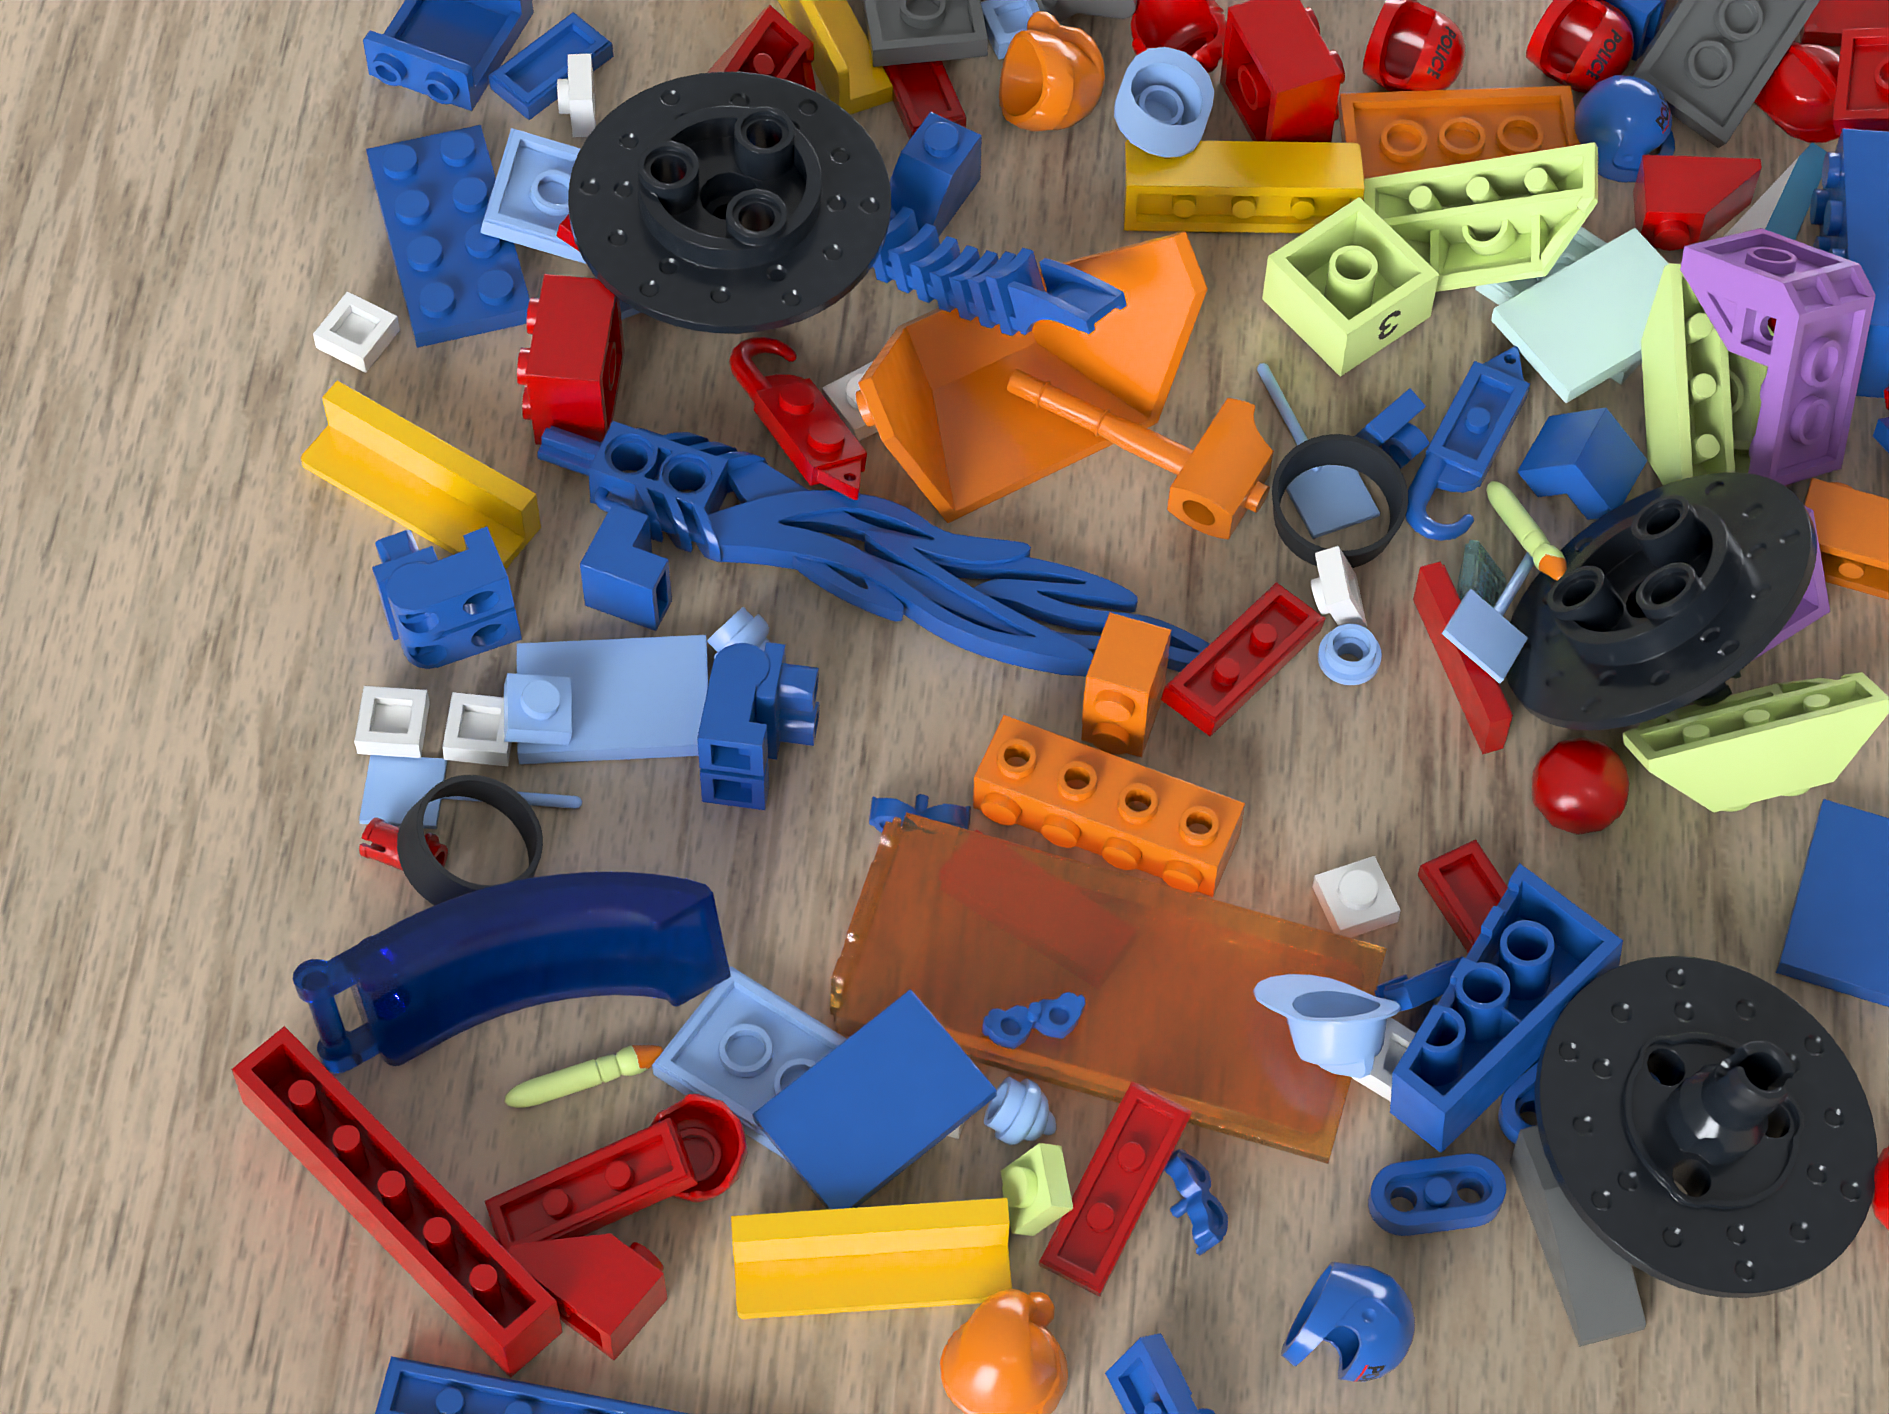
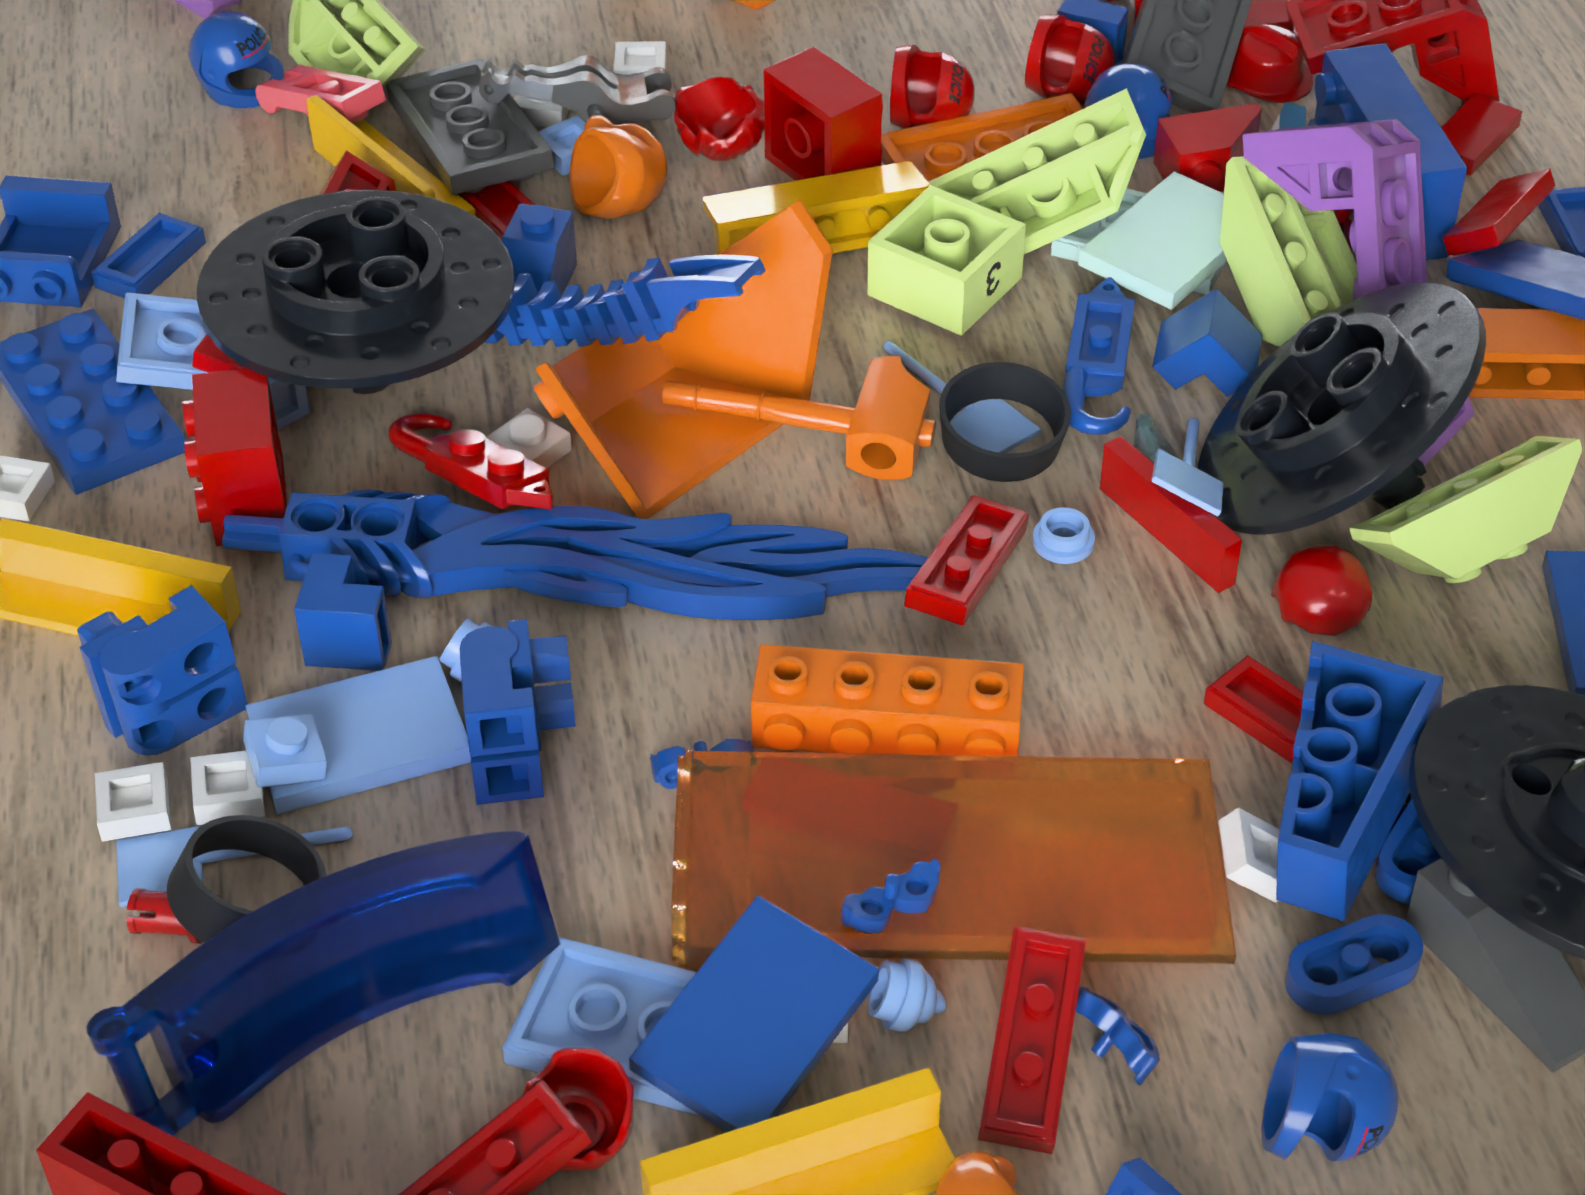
camera: 15 degrees left, 15 degrees down
(577, 95) = (181, 263): white plate -> none
(626, 1062) = (430, 1079): yellowish green piece -> none
(1036, 1189) = (955, 1056): yellowish green plate -> none
(1125, 685) = (869, 586): orange brick -> none
(1164, 102) = (726, 162): light blue piece -> none
(1329, 1020) = (1195, 829): light blue piece -> none
(1337, 588) = (1030, 484): white plate -> none
(1356, 898) = (1156, 729): white plate -> none
(1394, 433) = (1029, 349): blue tile -> none
(1419, 988) = (1254, 782): blue tile -> none
(1545, 556) = (1209, 420): yellowish green piece -> none

